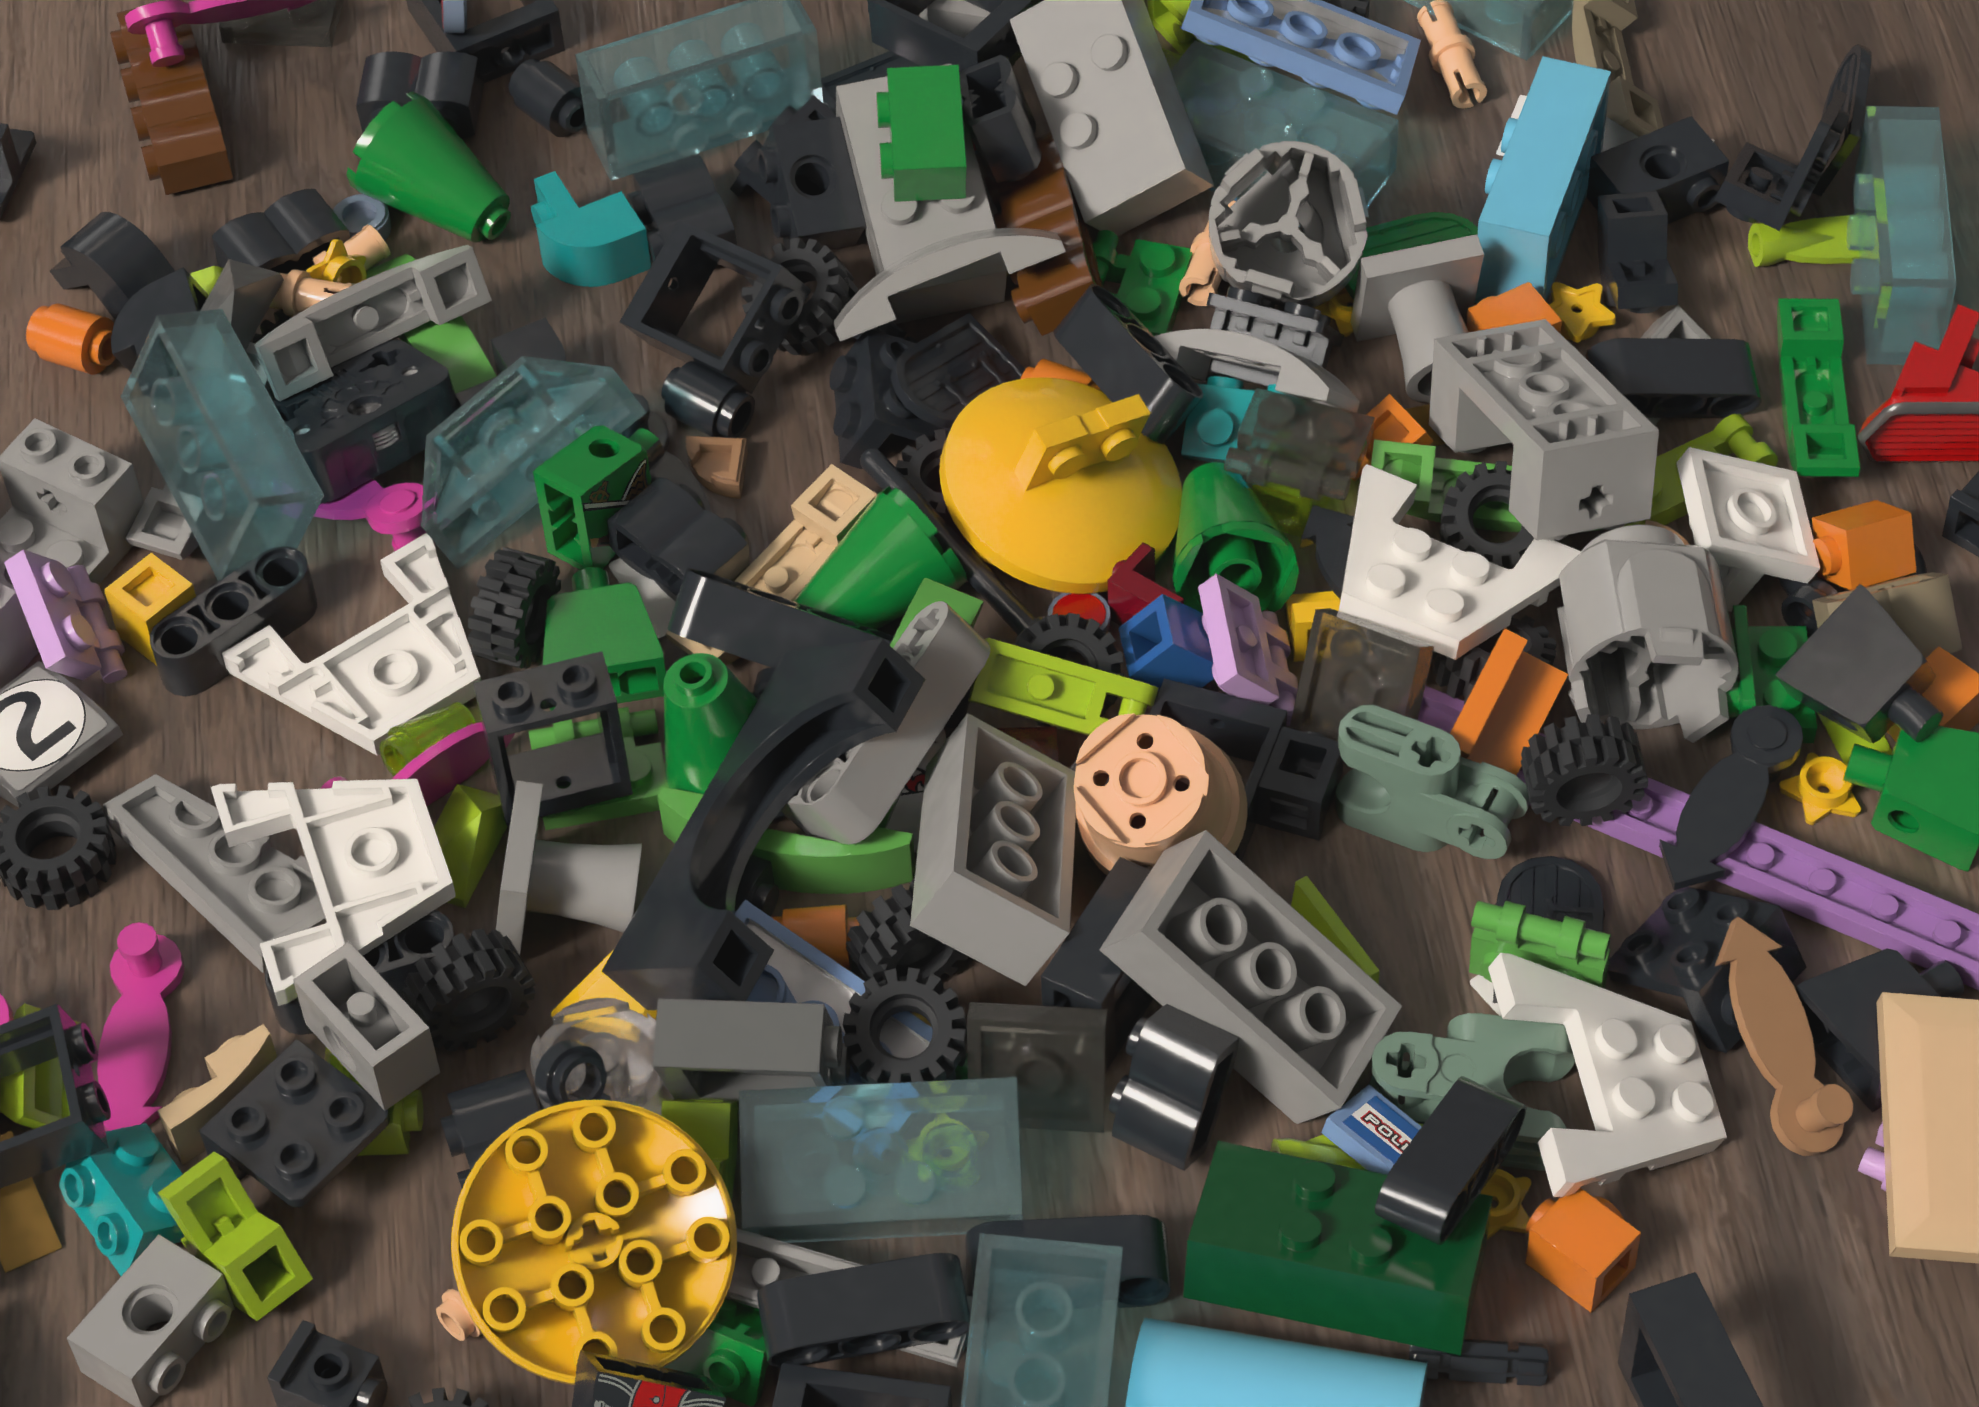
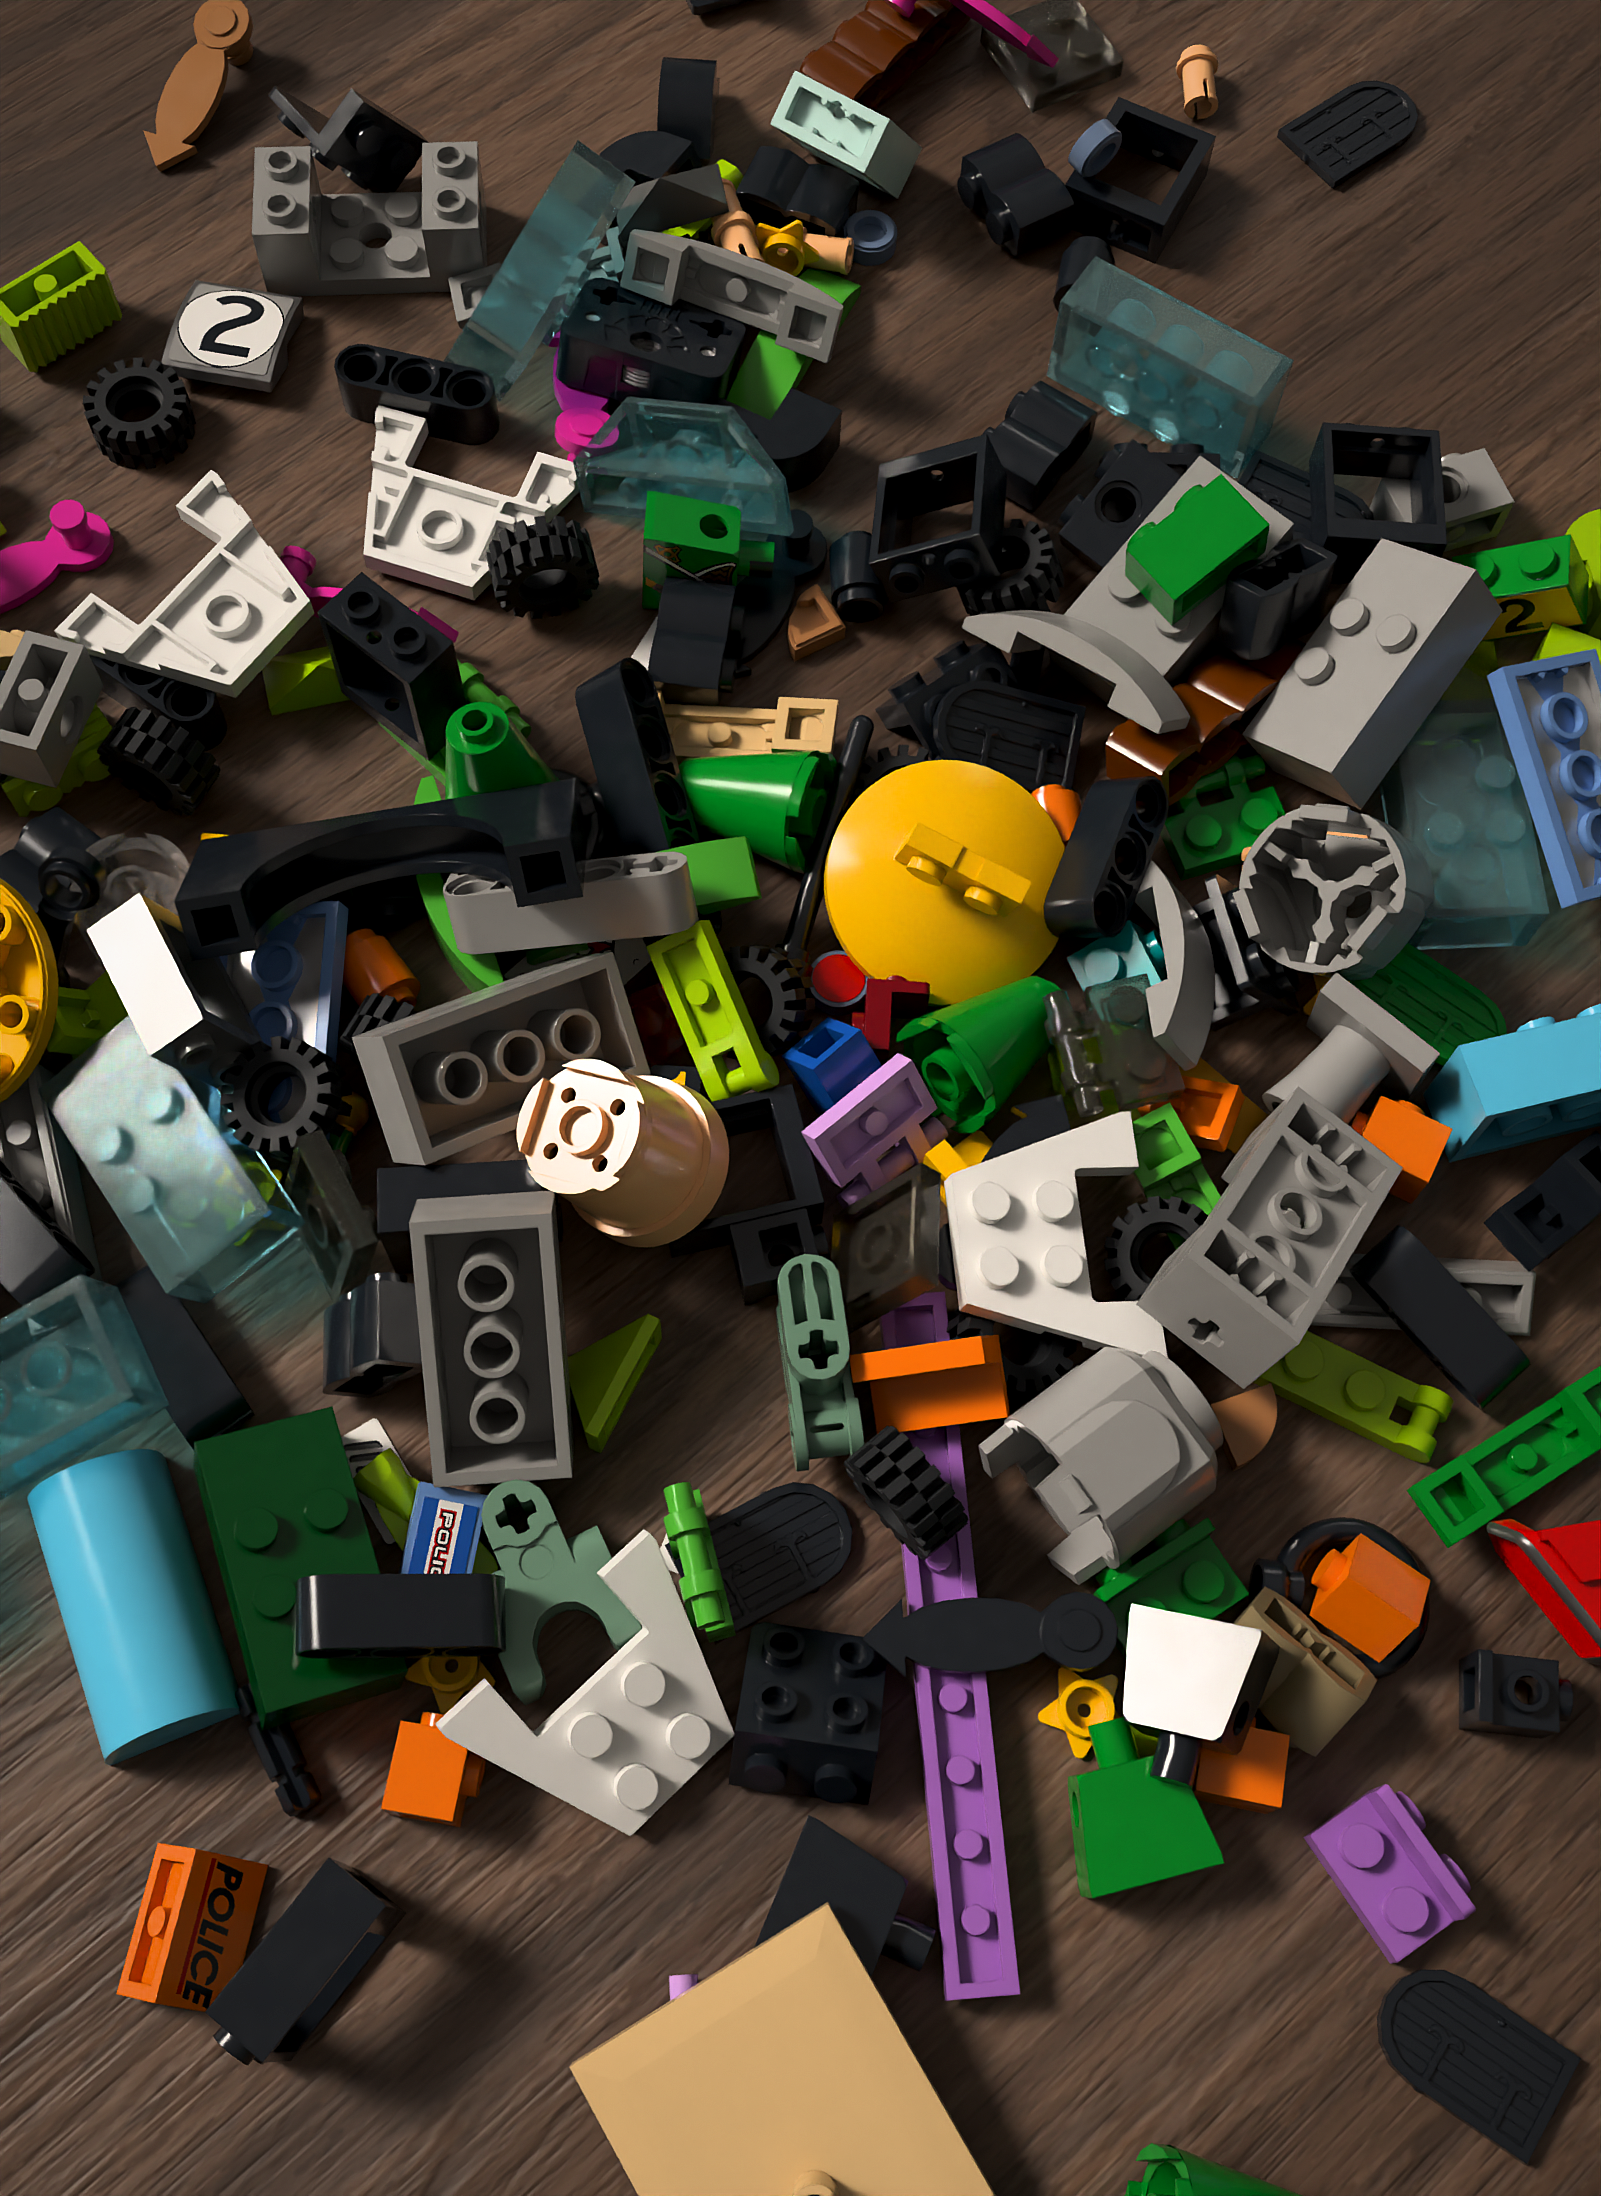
camera: 50 degrees right, 15 degrees up
(66, 617) = (317, 275): lavender plate -> none
(71, 338) = (608, 117): orange brick -> none
(144, 598) = (389, 321): yellow panel -> none
(241, 889) = (168, 545): light grey wing -> none
(256, 175) = (846, 134): none -> light aqua window
(416, 735) = (403, 585): clear neon green cone -> none
(428, 171) = (934, 241): green cone -> none
(562, 878) = (292, 740): light grey plant -> none
(588, 243) = (957, 392): teal brick -> none
(609, 621) = (559, 645): green torso -> none
(1592, 315) = (1462, 1202): yellow plate -> none
(1747, 519) = (1311, 1475): white bracket -> none
(1780, 1042) = (745, 1831): medium nougat brick -> none

